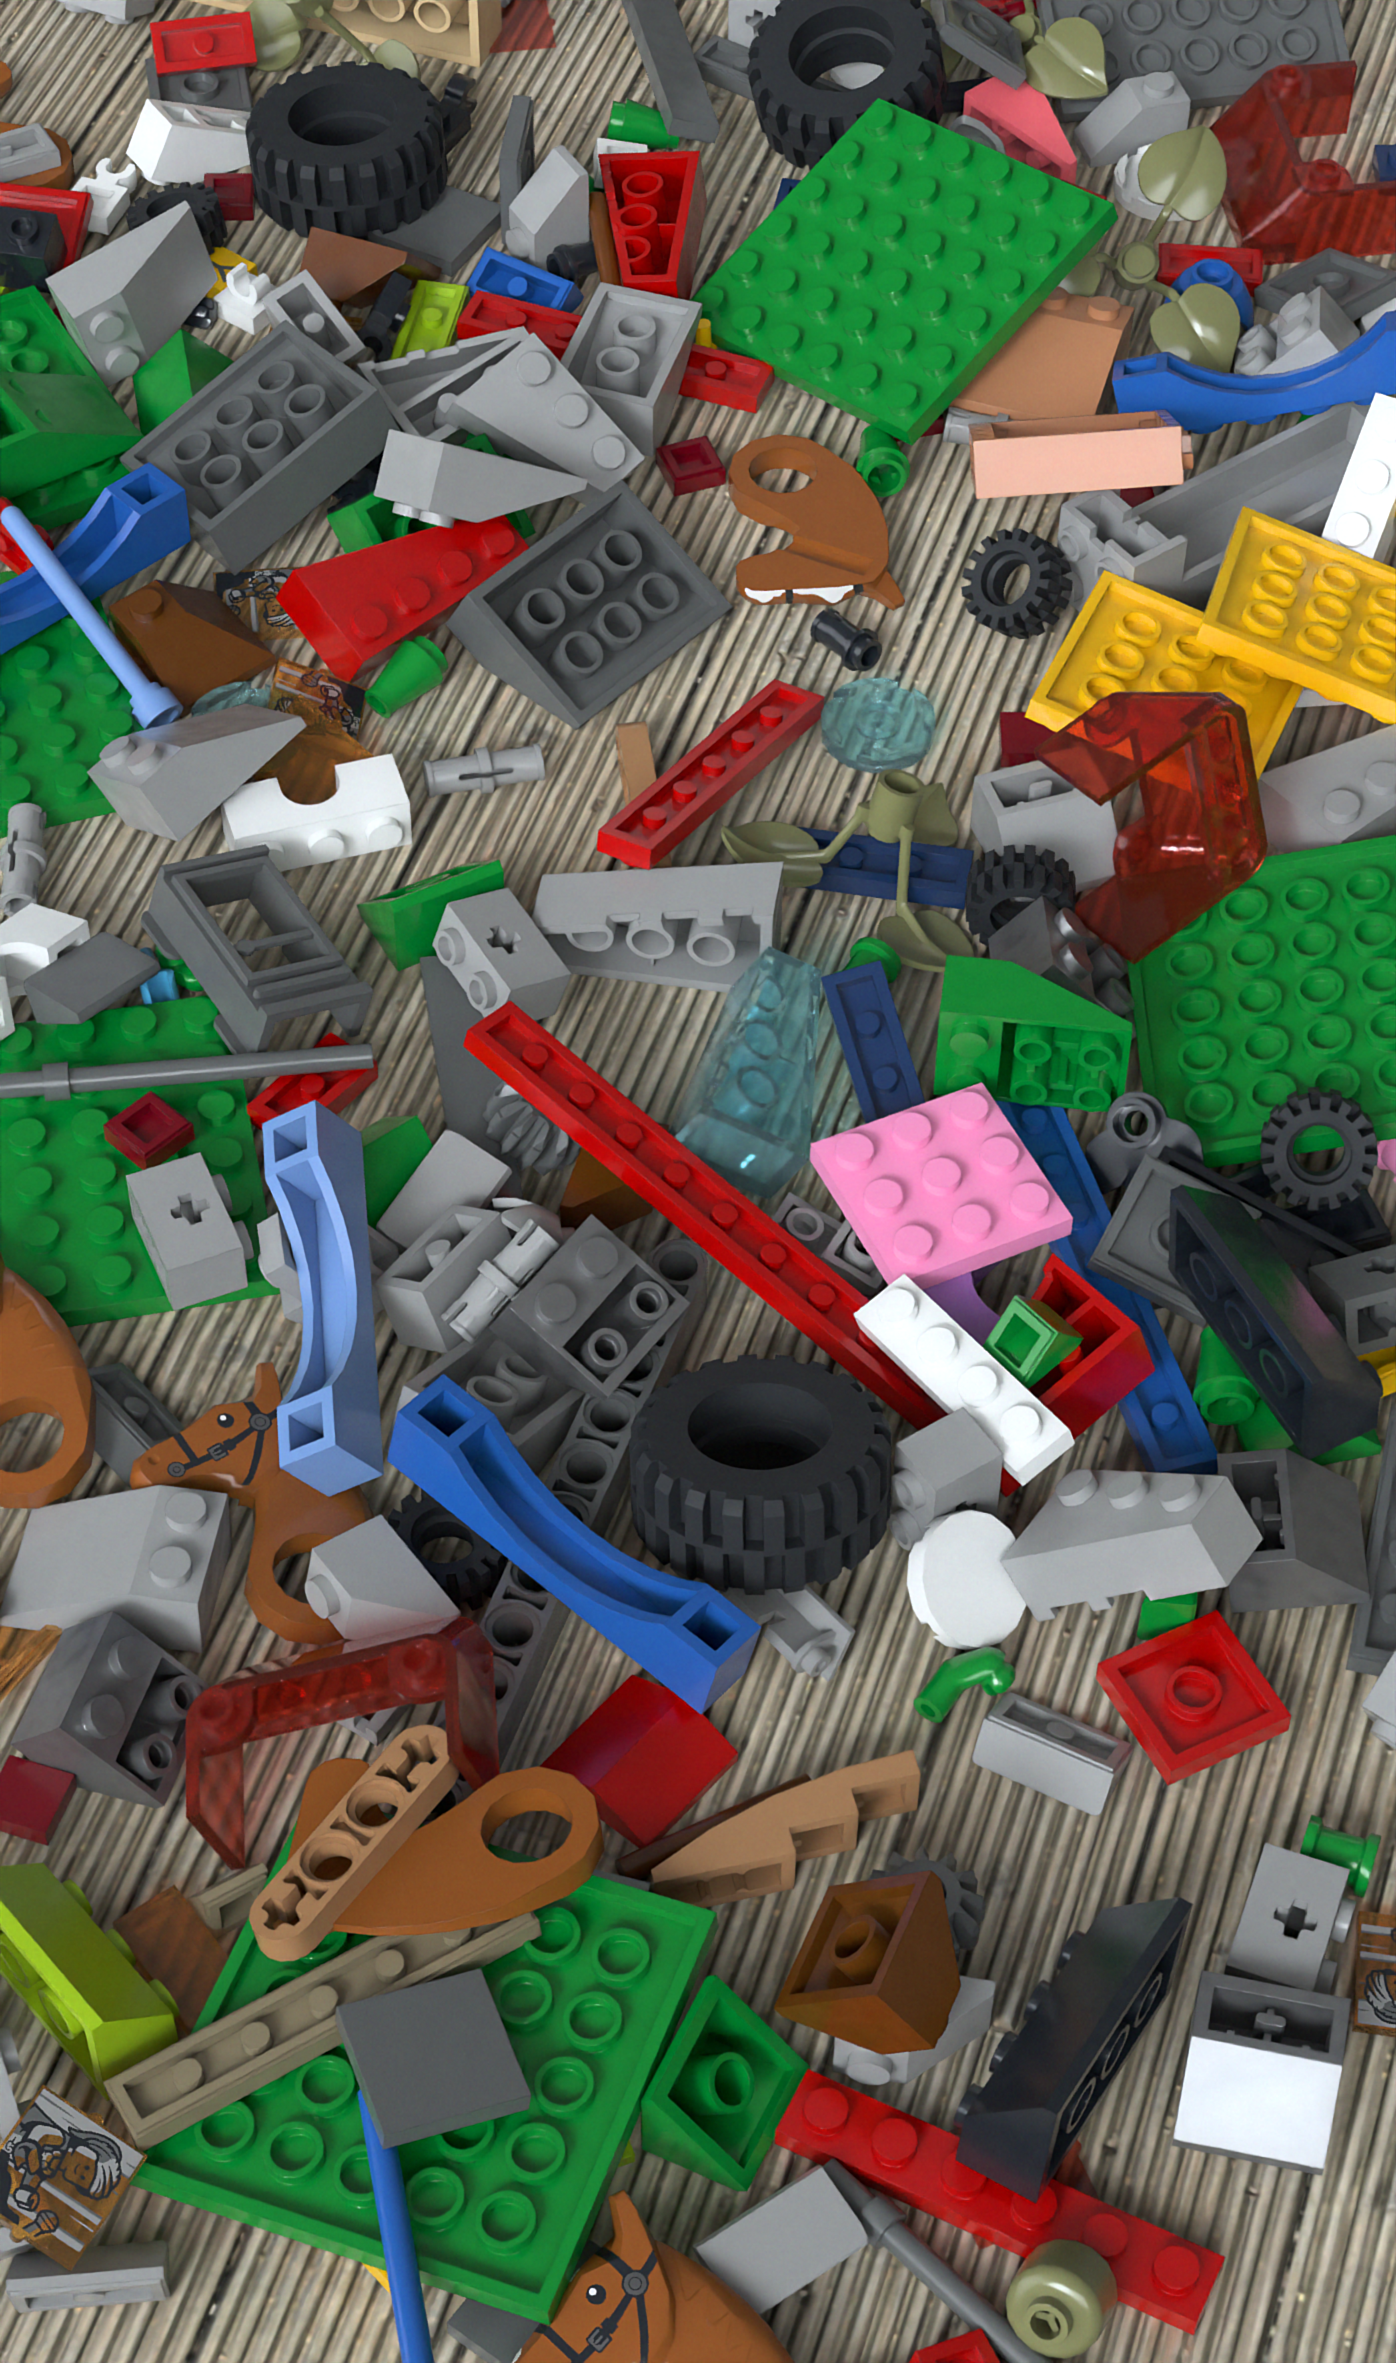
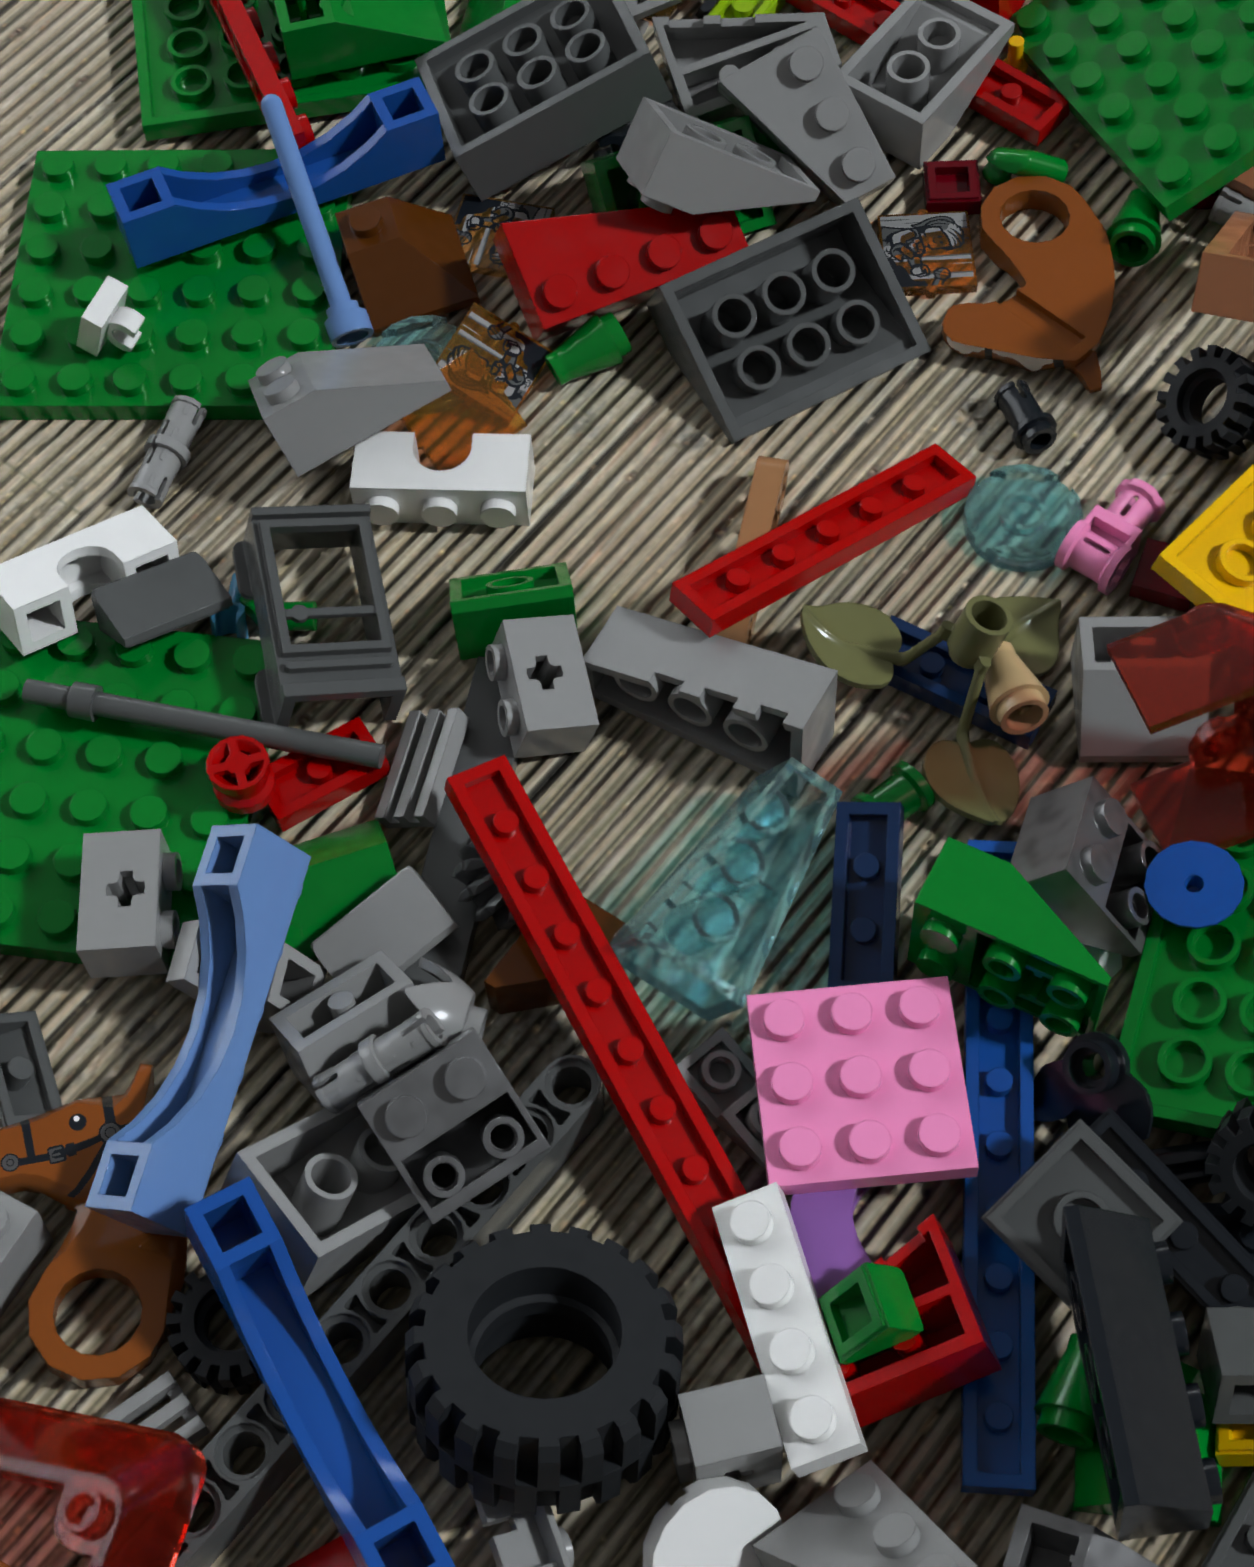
camera: 25 degrees right, 10 degrees up
(149, 1131) = (146, 779): dark red tile -> none
(254, 1088) = (231, 762): none -> red wheel
(372, 1583) = (129, 1362): light grey slope -> none
(401, 1067) = (414, 767): none -> light grey tile
(483, 770) = (621, 468): light grey pin -> none
(701, 523) = (929, 252): none -> piece
(755, 426) = (1022, 162): none -> green arm
(941, 856) = (1014, 693): none -> tan cone
(966, 719) = (1110, 537): none -> bright pink connector
(1011, 877) = (1073, 749): black tyre -> none
(1161, 964) = (1194, 884): none -> blue piece

